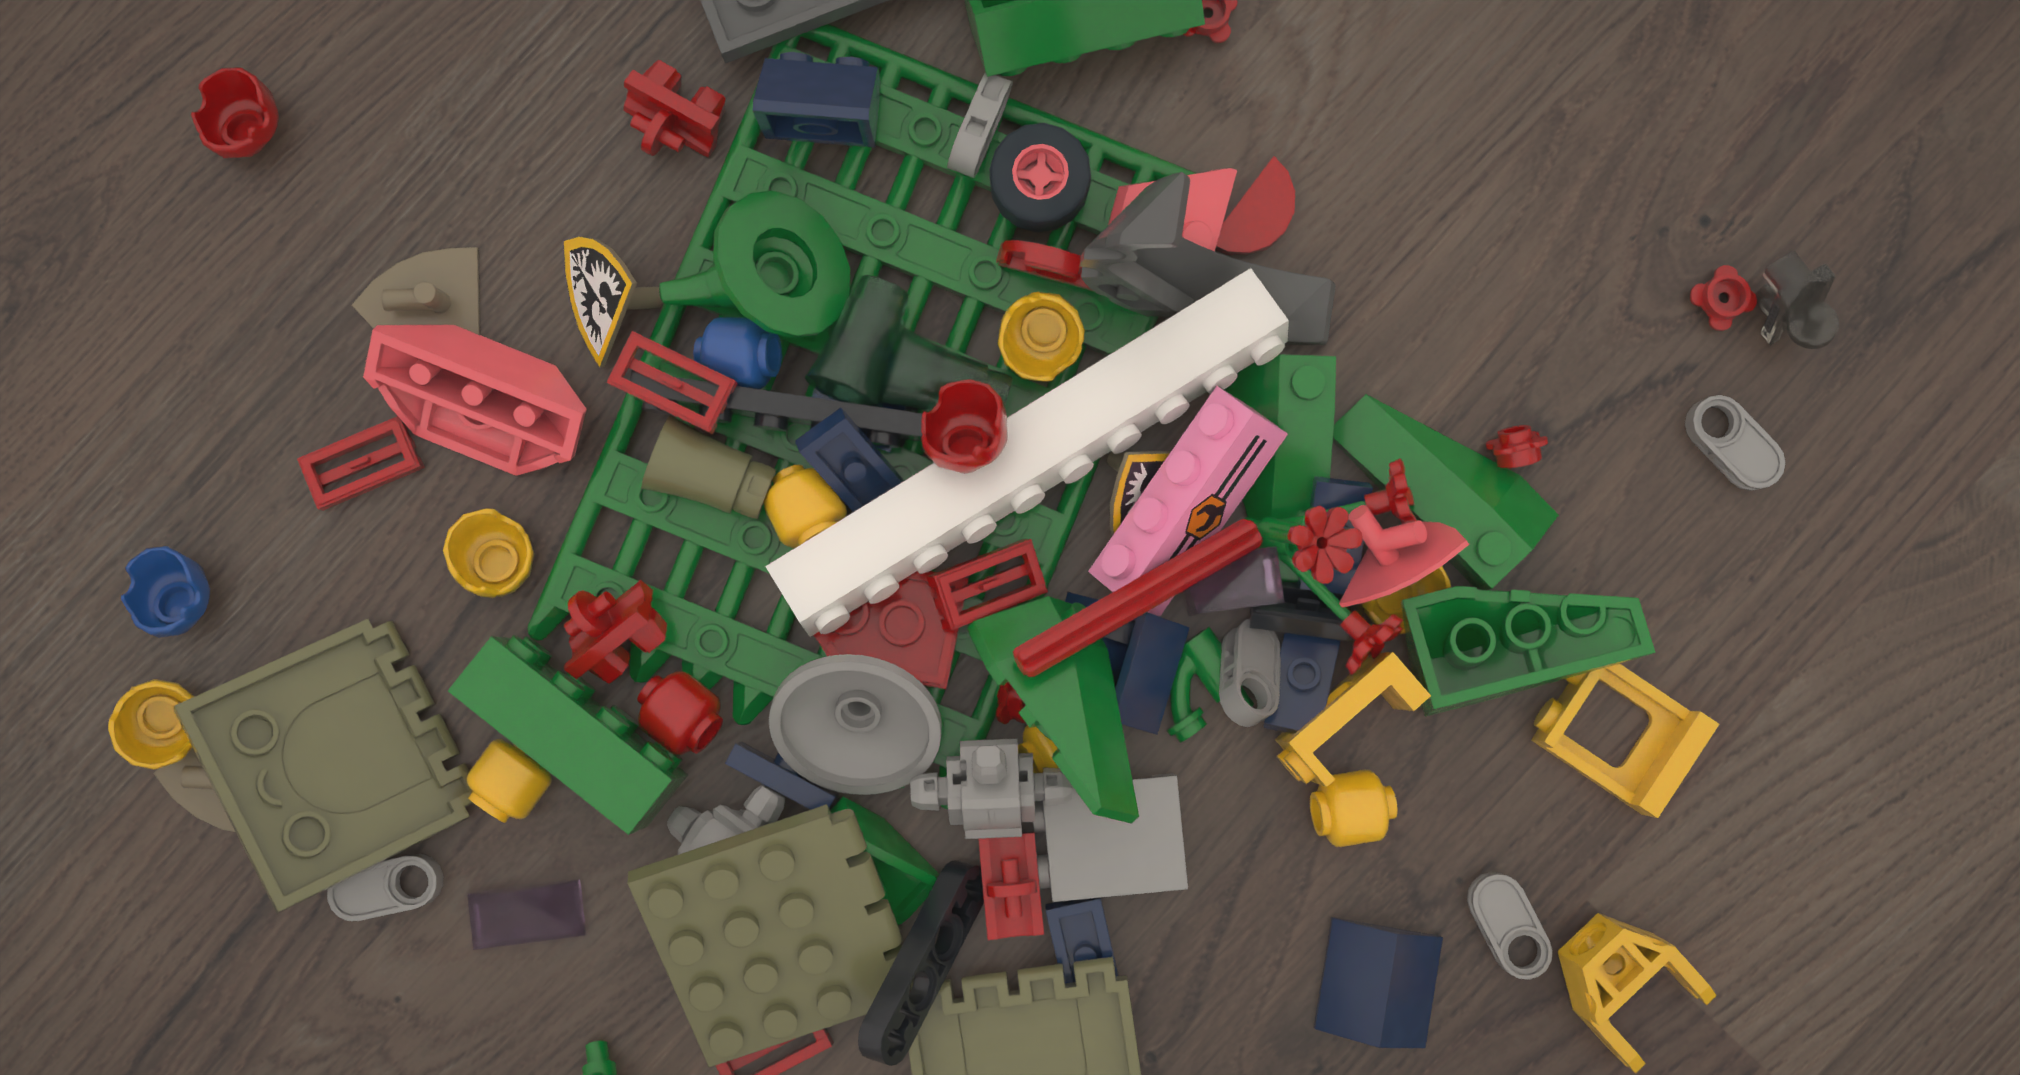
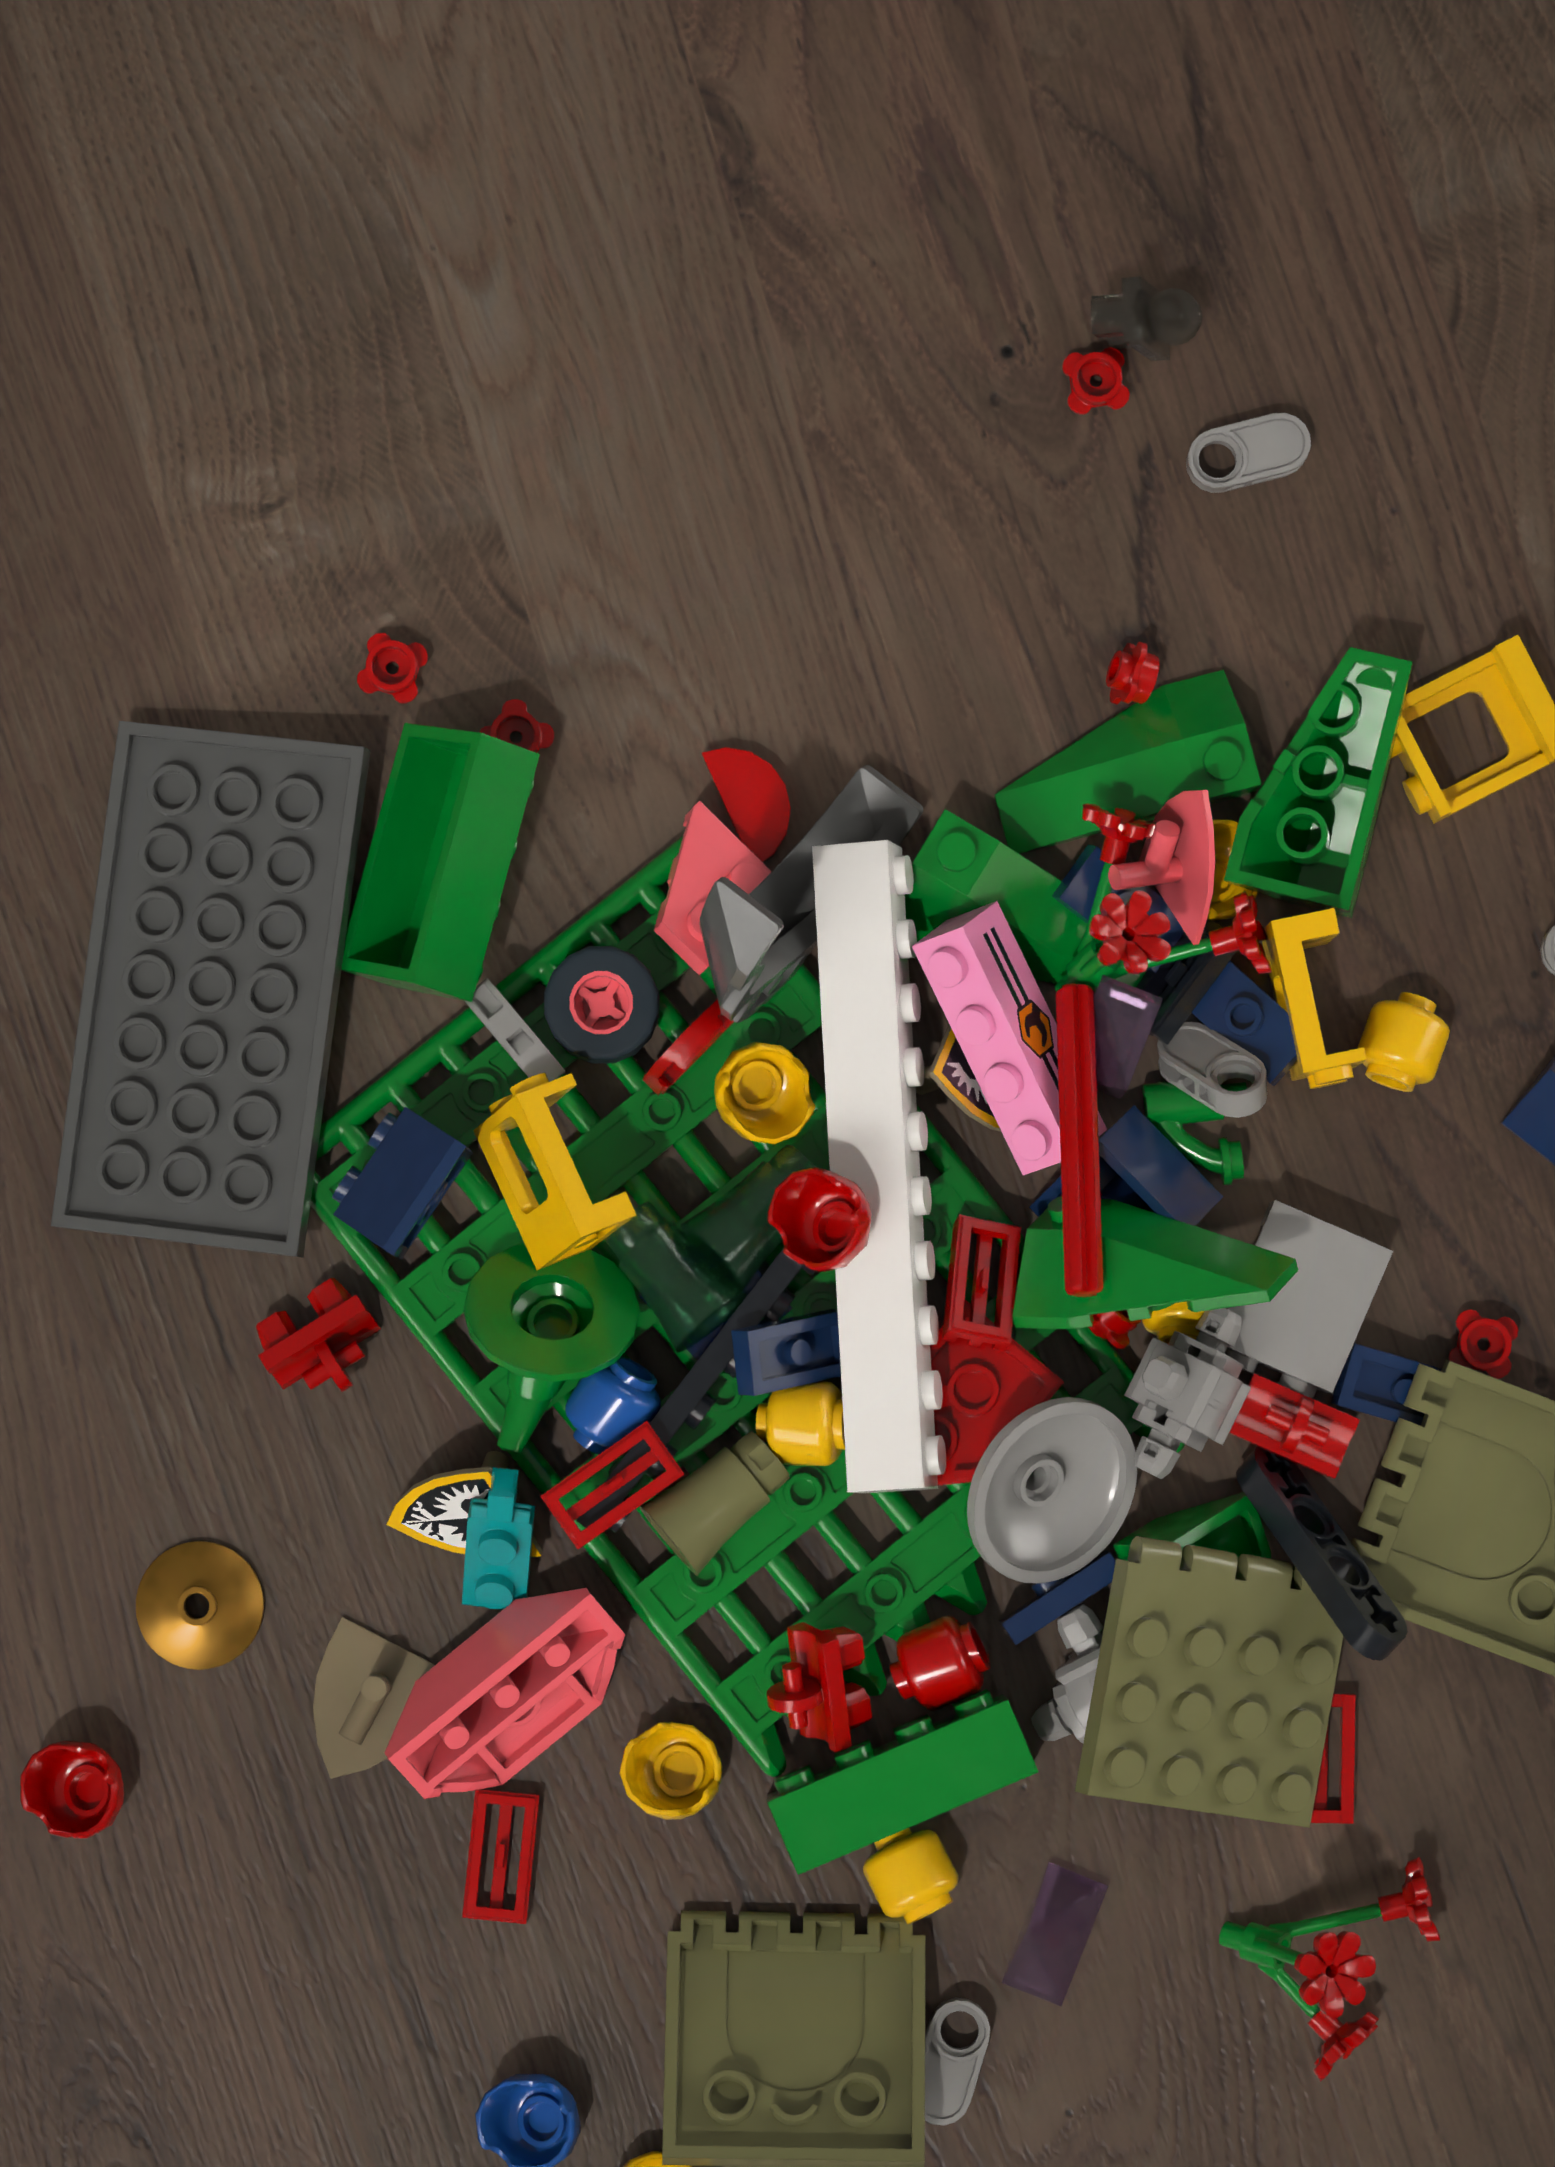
camera: 60 degrees left, 0 degrees up
(450, 151) = (233, 1600): none -> pearl gold dish
(587, 327) = (498, 1545): none -> teal hinge
(878, 195) = (567, 1219): none -> yellow window
(1167, 1007) = (1500, 1336): none -> red plate

